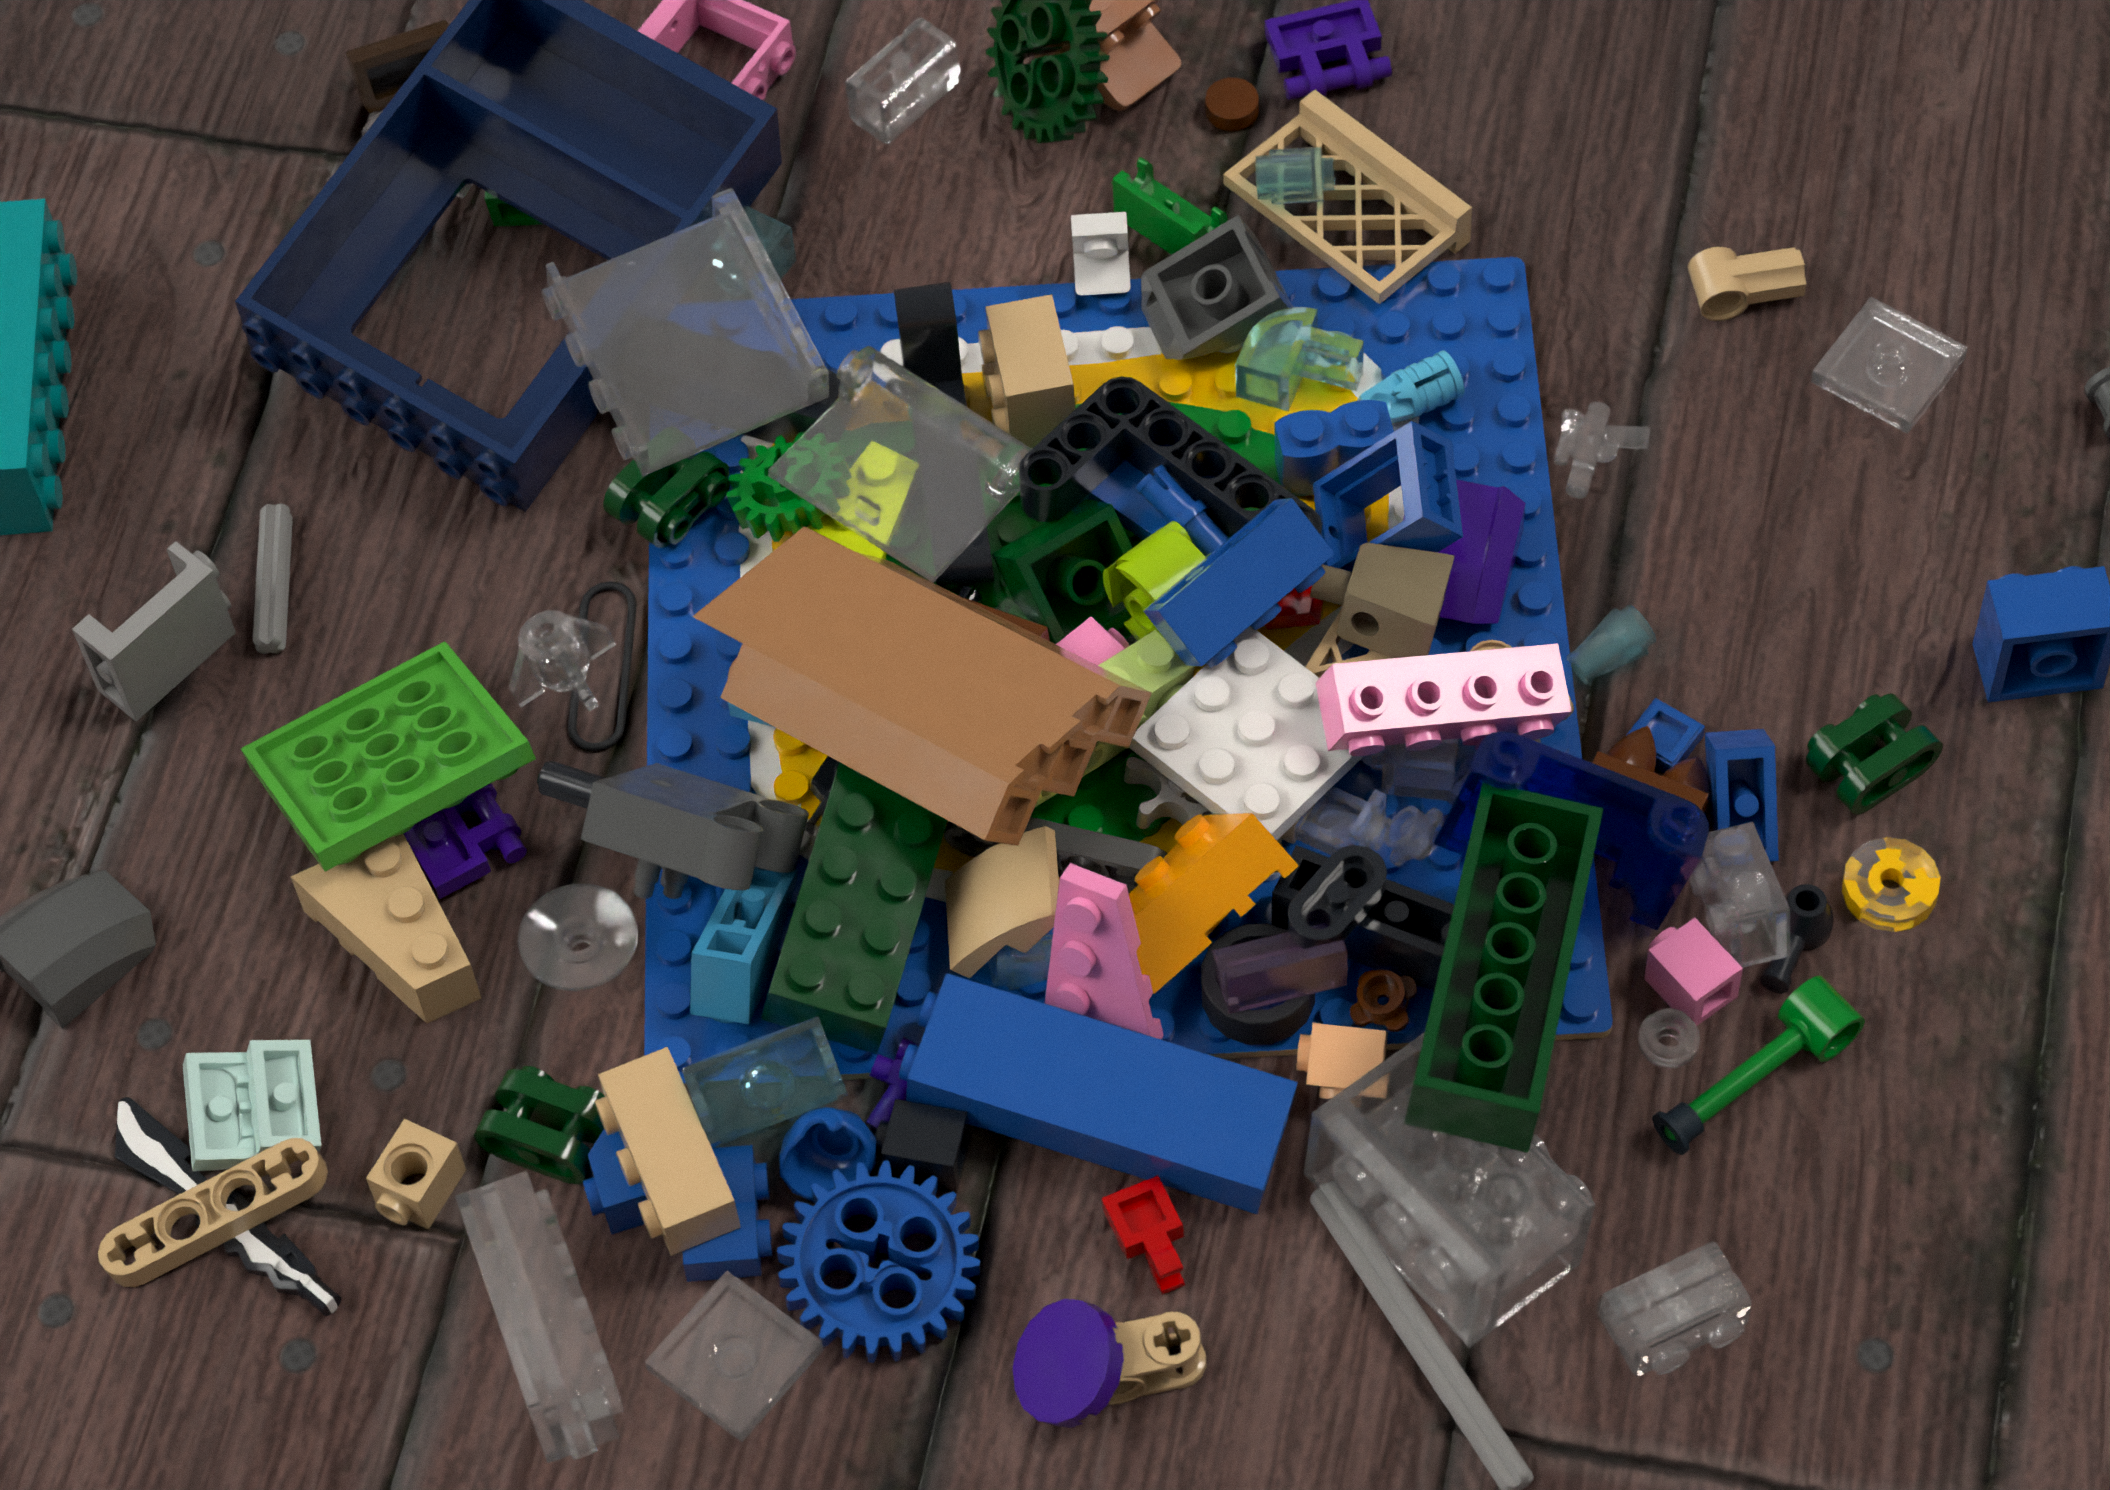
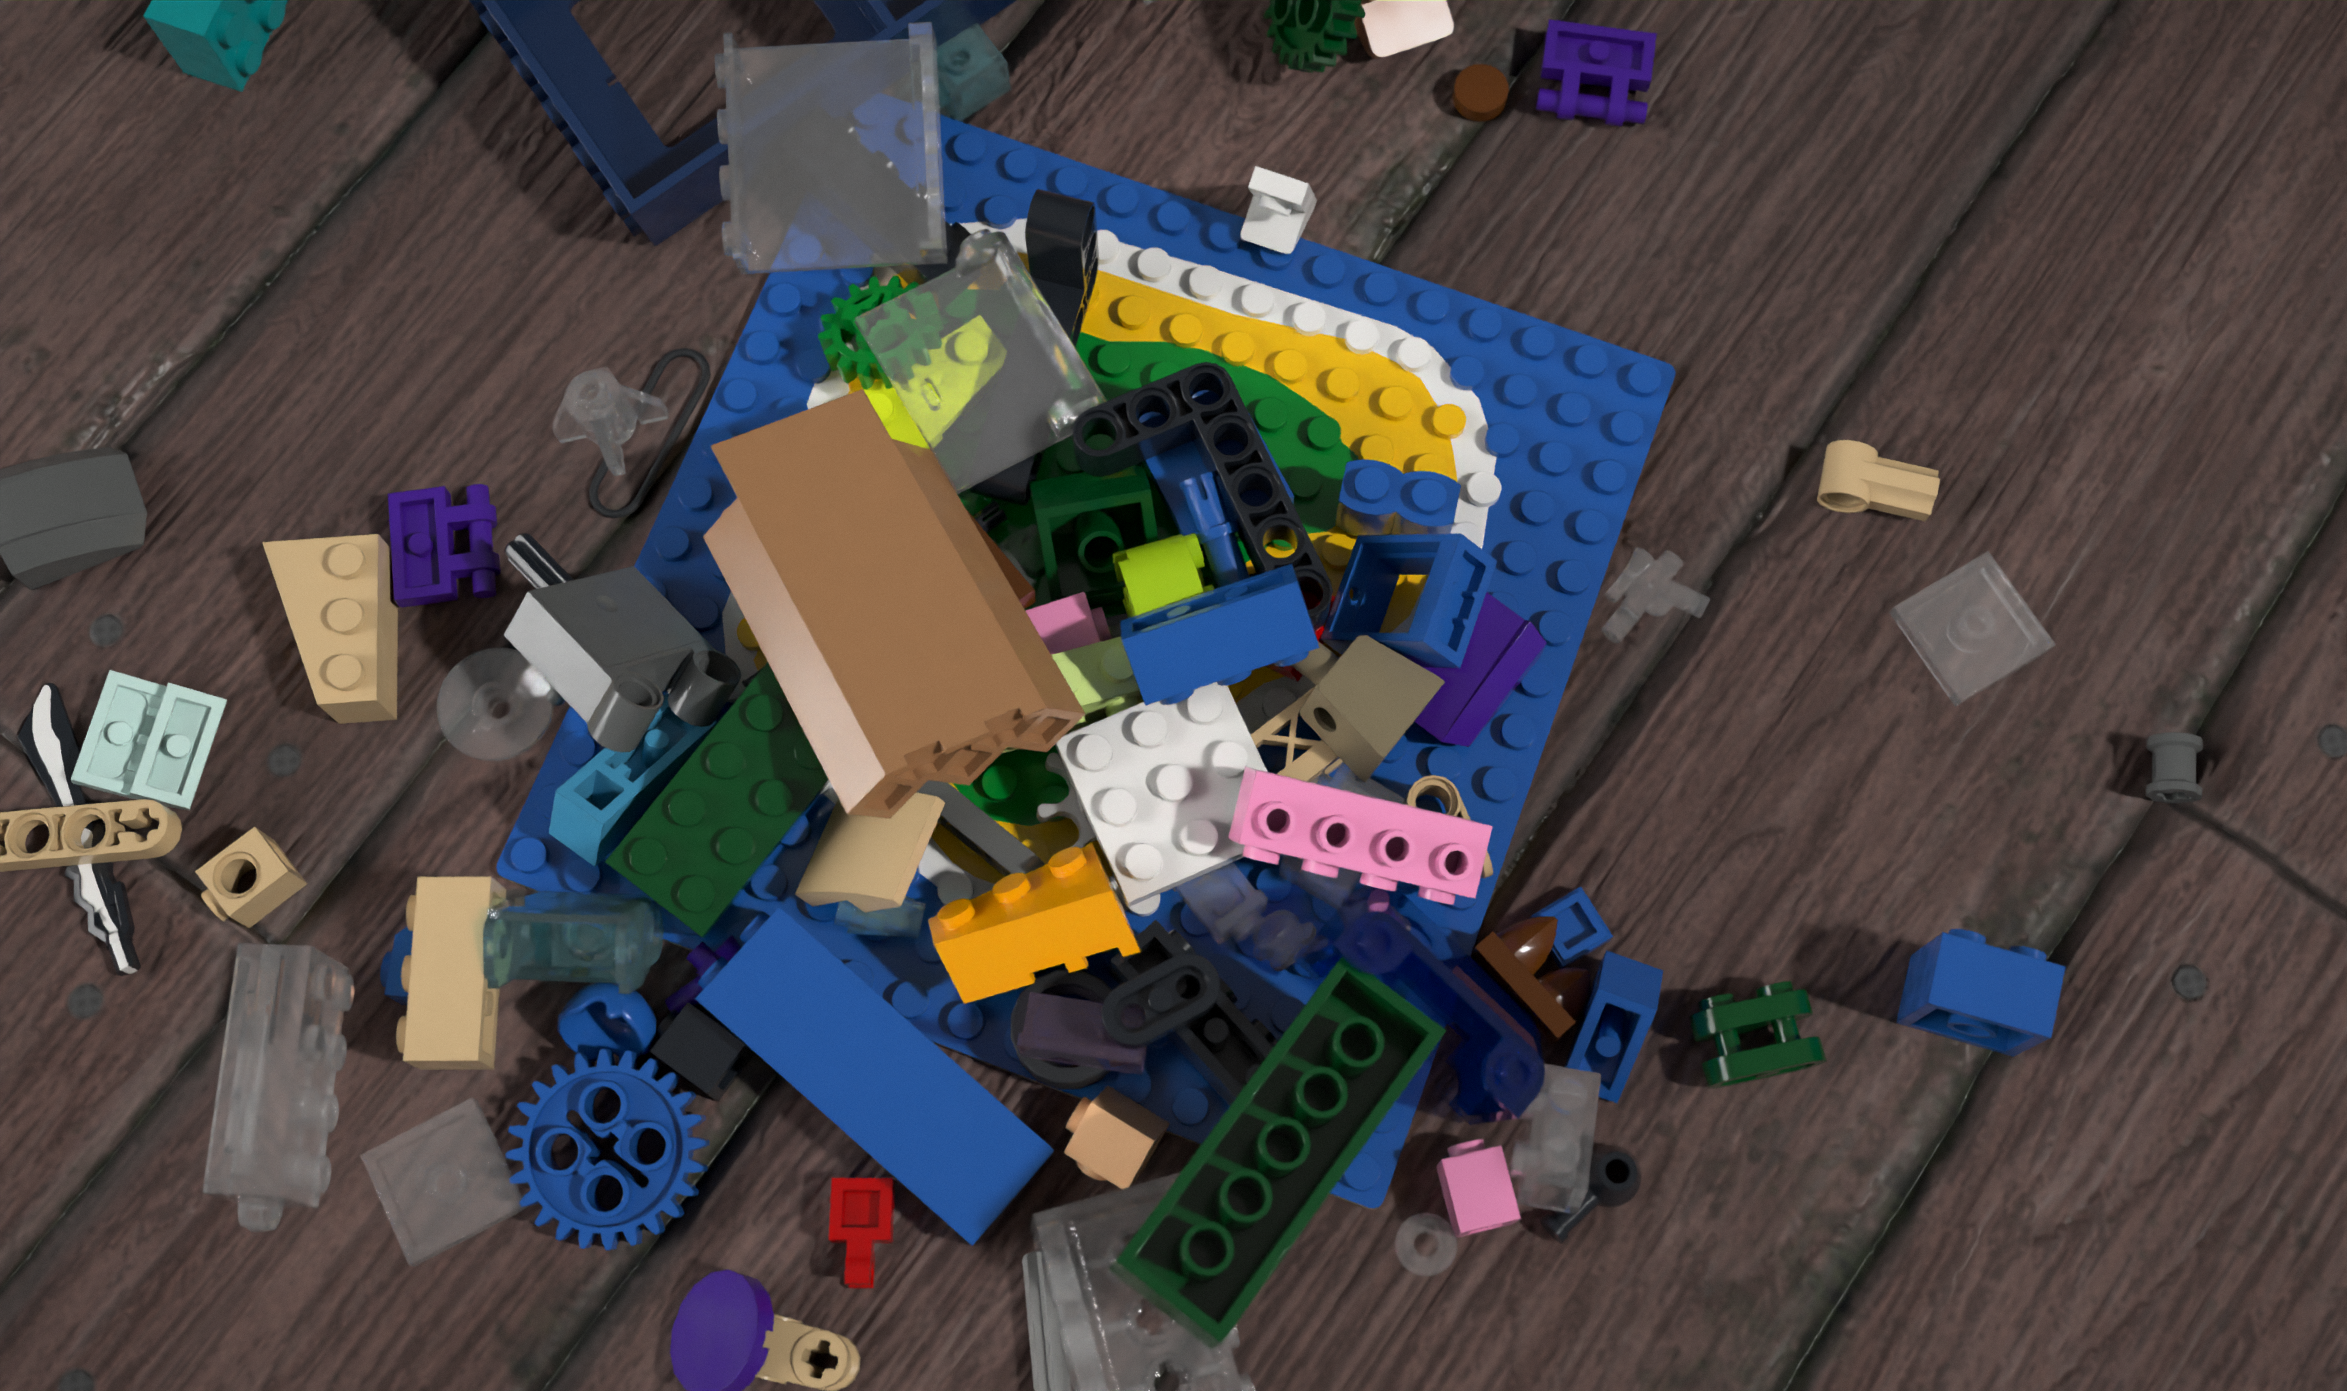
camera: 20 degrees right, 15 degrees up
(161, 639) = (268, 248): light grey panel -> none
(272, 579) = (401, 223): light grey axle -> none
(387, 755) = (320, 440): bright green piece -> none
(542, 1125) = (384, 844): dark green brick -> none
(667, 498) = (771, 300): dark green brick -> none
(742, 1248) = (522, 1019): blue brick -> none
(1026, 368) = (1144, 312): tan brick -> none
(1095, 954) = (918, 954): bright pink wing -> none
(1159, 211) = (1365, 188): green hinge -> none
(1211, 292) = (1364, 295): dark grey slope -> none
(1291, 347) = (1403, 380): clear light blue brick -> none
(1294, 175) = (1493, 202): clear light blue brick -> none
(1378, 984) = (1171, 1078): reddish brown plate -> none
(1384, 177) = (1585, 236): tan fence -> none
(1419, 387) = (1481, 474): medium azure hinge -> none
(1612, 644) = (1565, 814): clear light blue cone -> none
(1815, 1021) = (1568, 1293): green piece -> none
(1886, 907) = (1737, 1170): clear piece -> none

